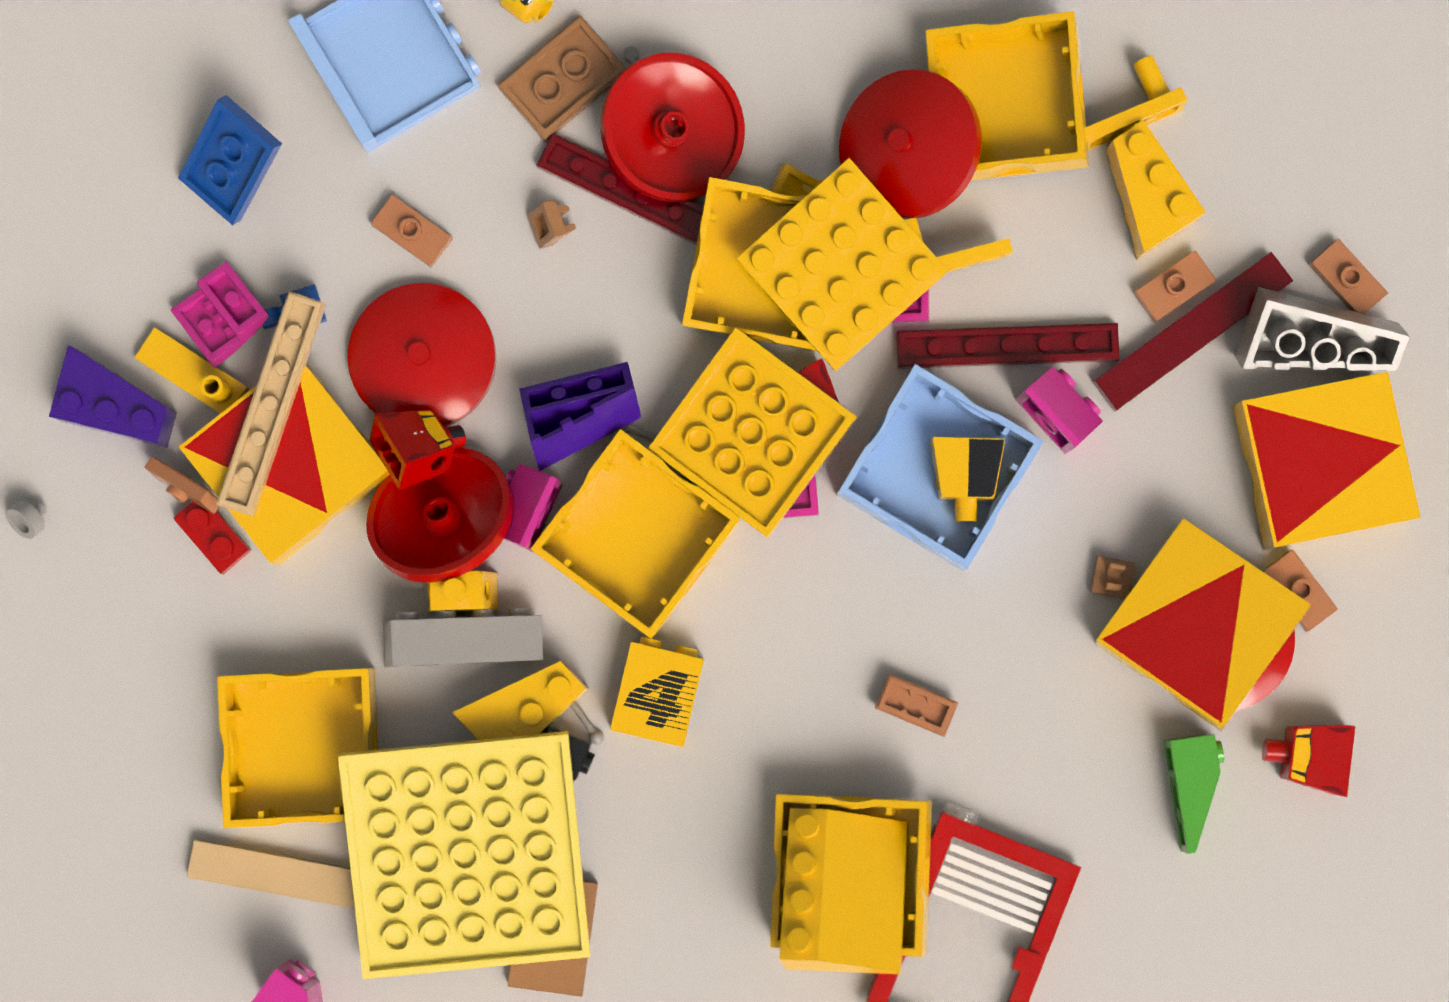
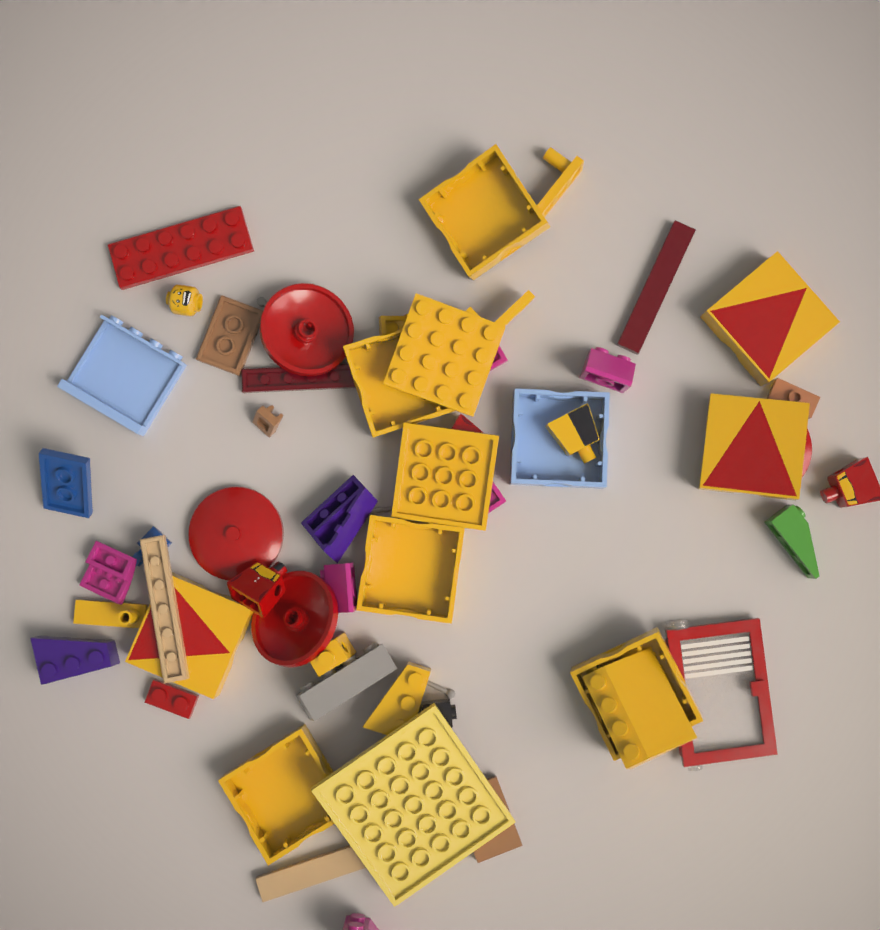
camera: 25 degrees left, 0 degrees up
(26, 518) = (61, 748): light grey tile -> none
(181, 486) = (138, 683): nougat plate -> none
(411, 231) = (192, 466): nougat plate -> none
(657, 692) = (471, 650): yellow panel -> none
(913, 140) = (445, 264): red dish -> none
(916, 705) = (618, 578): nougat plate -> none
(1008, 345) = (558, 350): dark red tile -> none
(1112, 577) = (686, 447): medium nougat tile -> none
(1150, 189) = (590, 221): yellow wedge -> none
(1175, 286) = (632, 268): nougat plate -> none
(1306, 333) = (717, 255): light grey wedge -> none
(1348, 278) = (724, 212): nougat plate -> none

